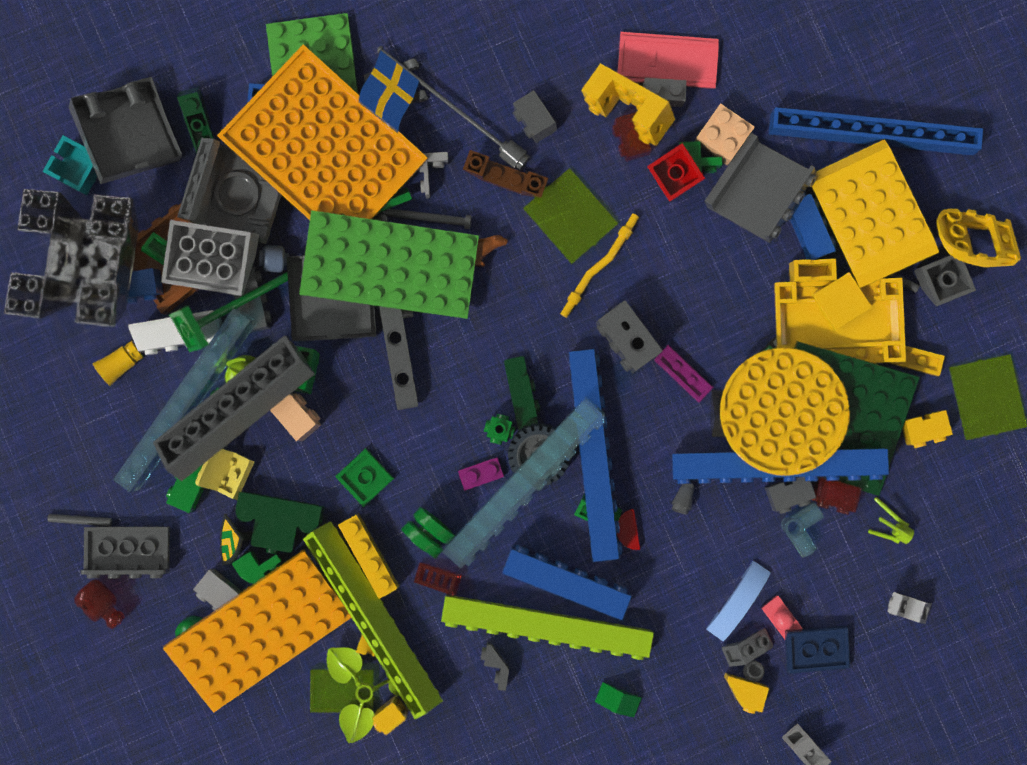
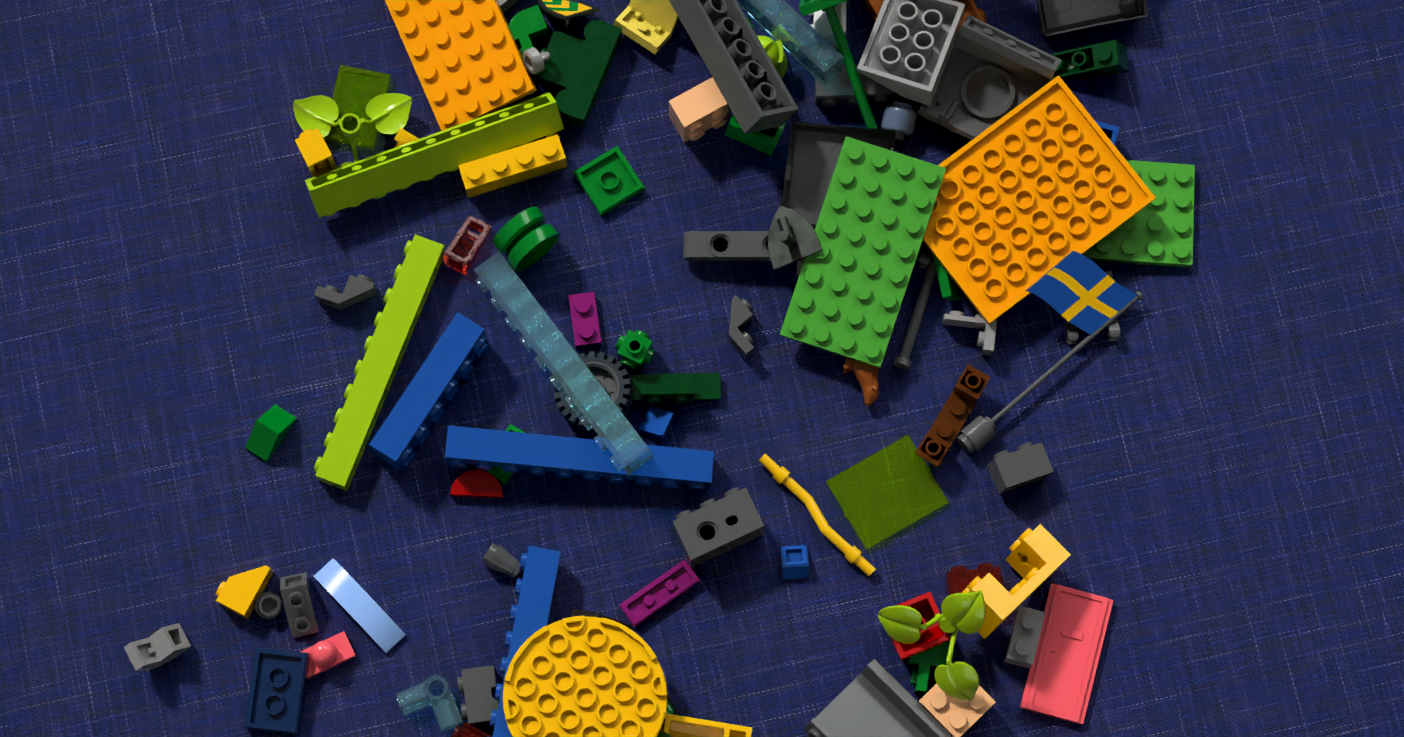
camera: 100 degrees right, 10 degrees down
(280, 555) = (534, 60): none -> light grey tile
(389, 323) = (791, 238): none -> pearl dark grey shield
(455, 353) = (739, 318): none -> dark grey slope
(551, 402) = (656, 422): none -> blue slope
(638, 276) = (794, 562): none -> blue slope
(672, 127) = (959, 612): none -> lime plant

